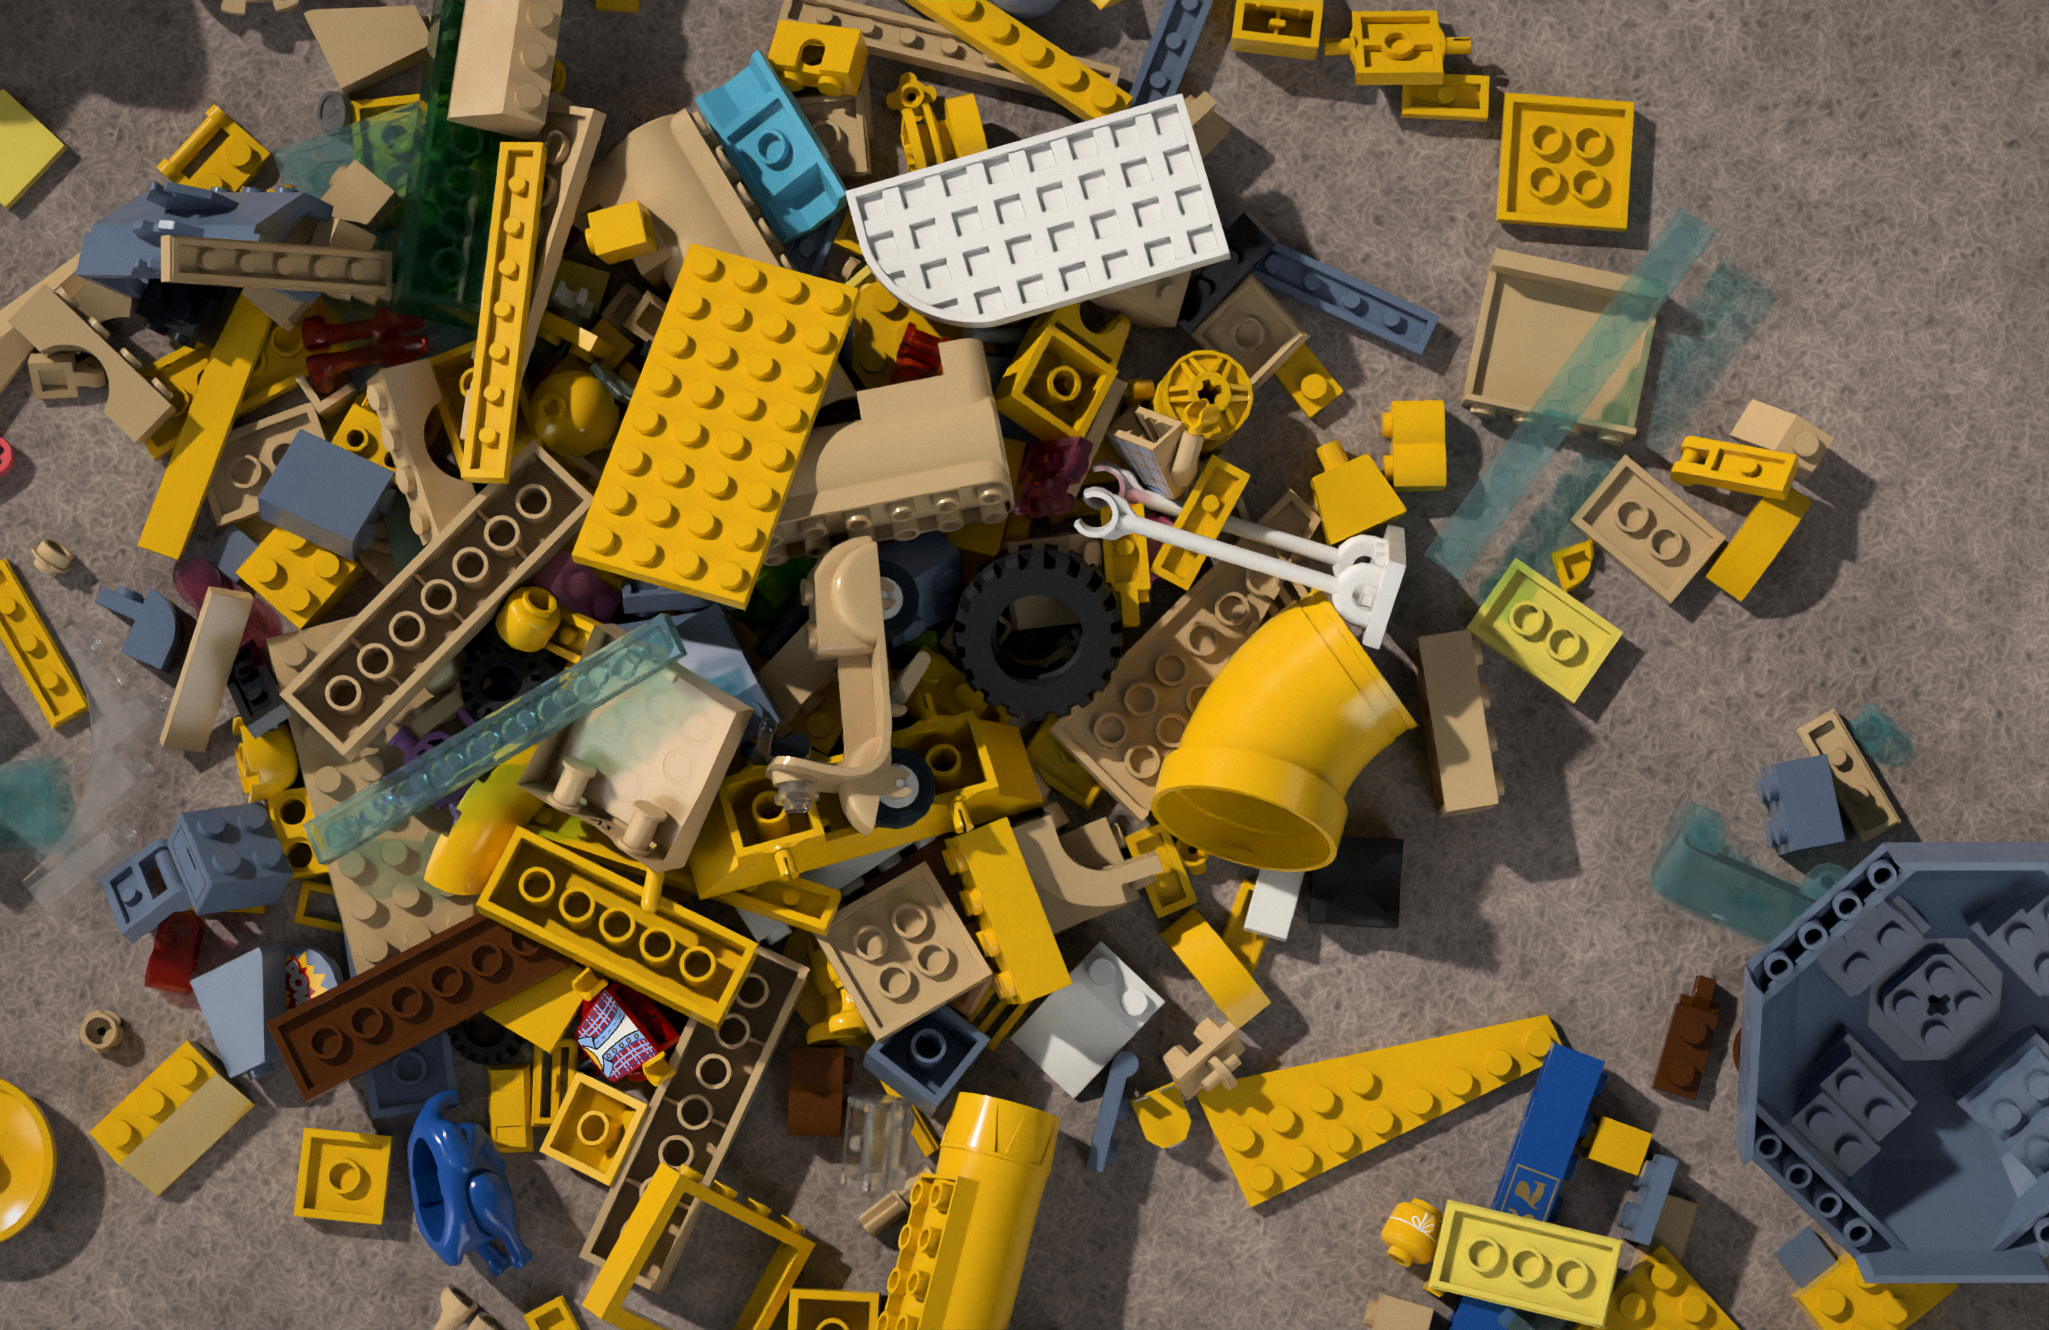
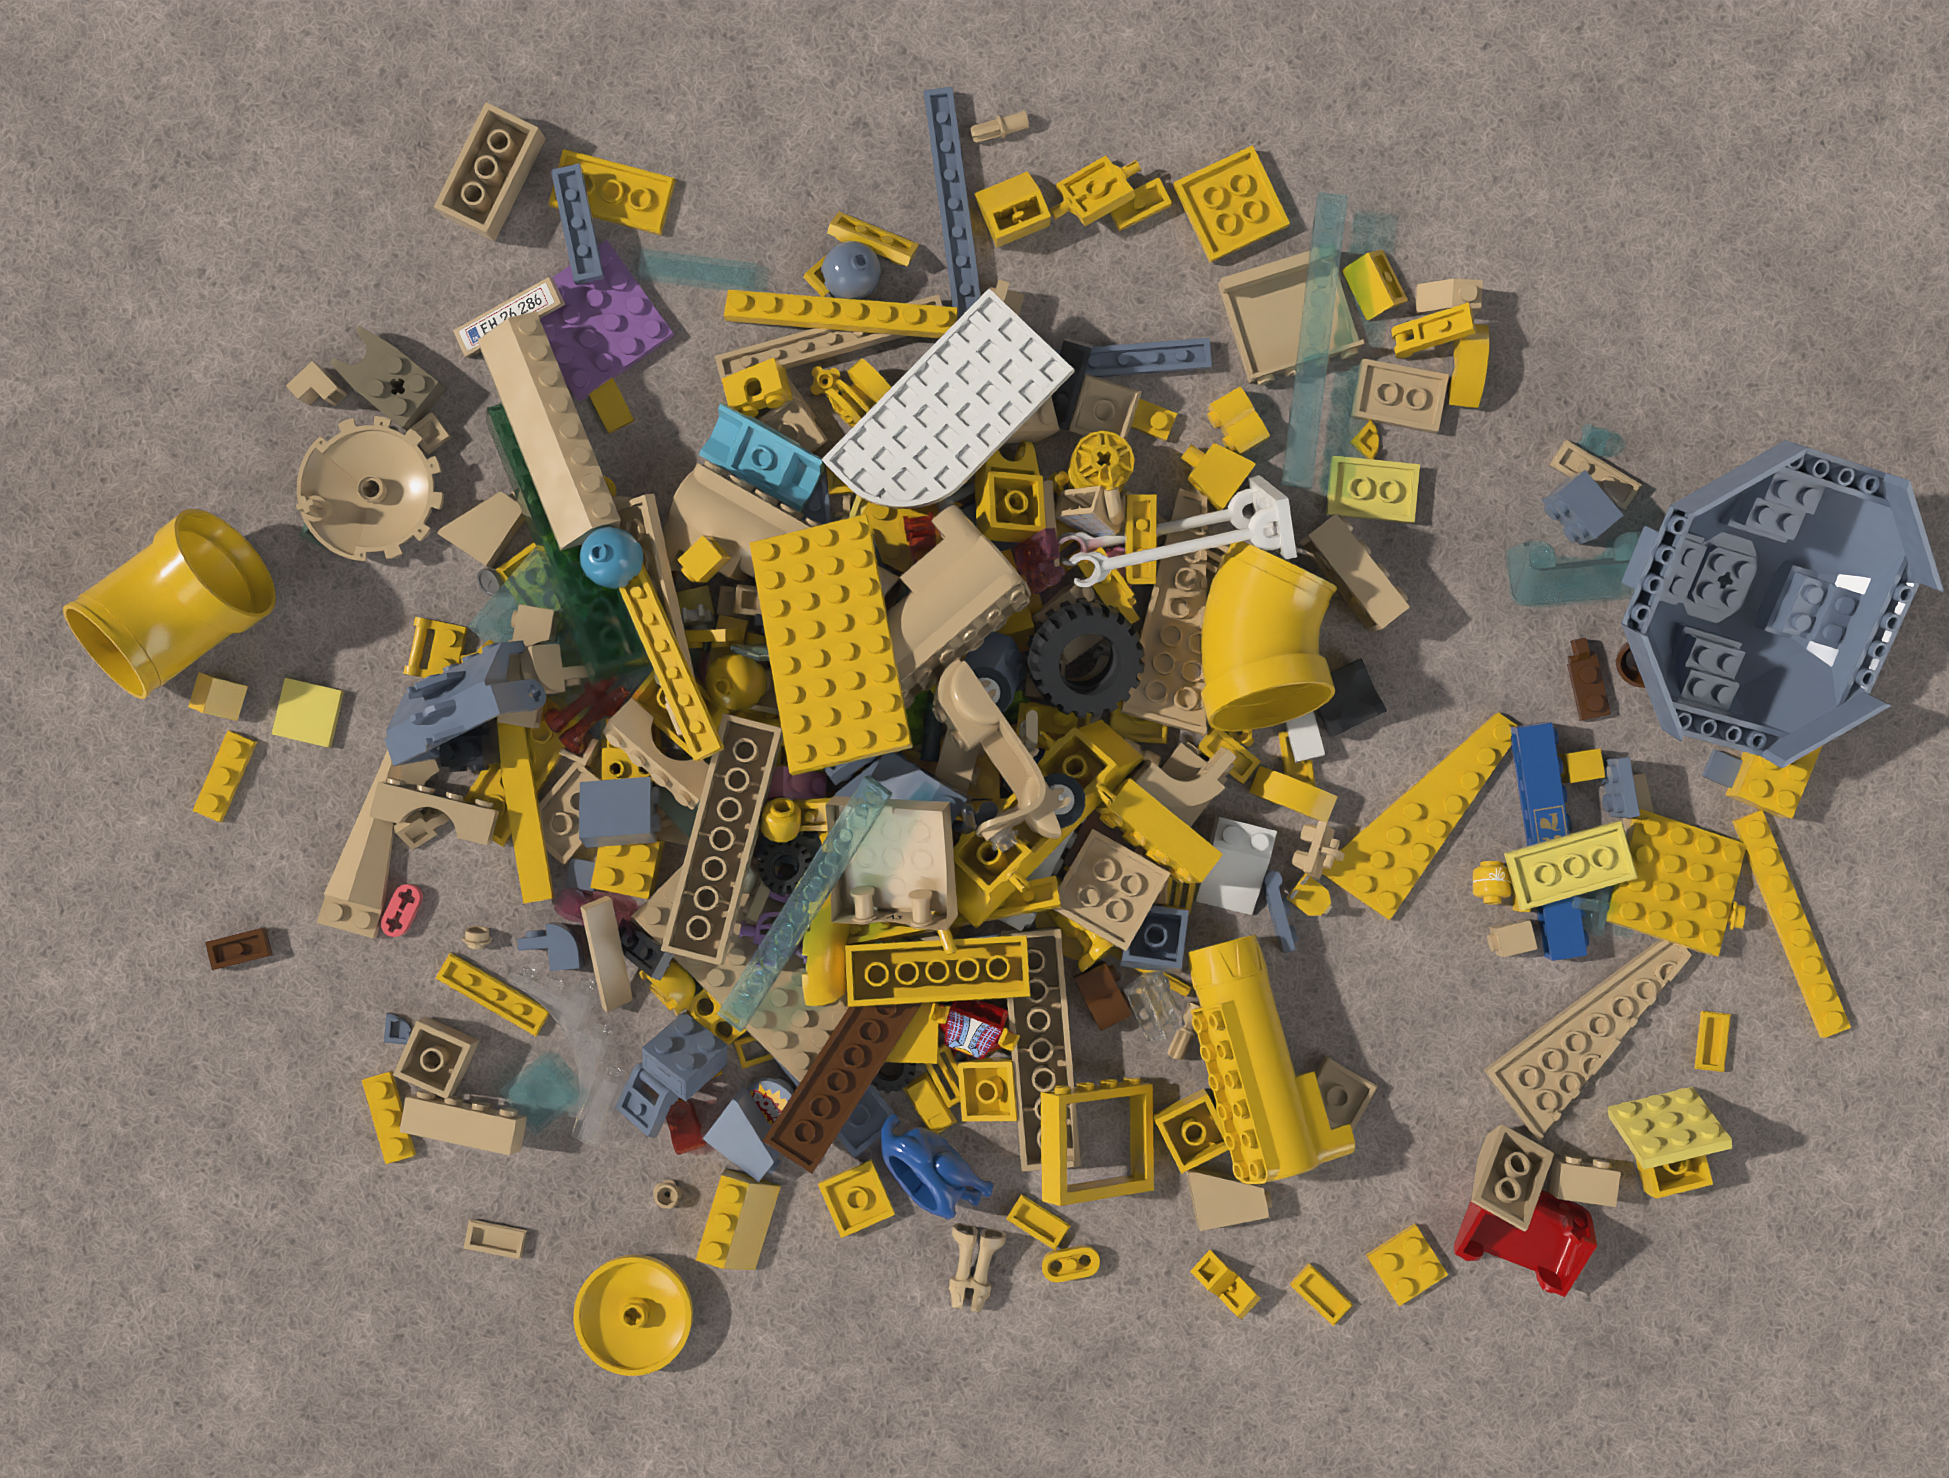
camera: 25 degrees left, 5 degrees up
(275, 266) = (509, 698): tan tile -> none
(505, 163) = (611, 557): none -> dark azure cylinder
(1695, 367) = (1374, 284): none -> yellow panel

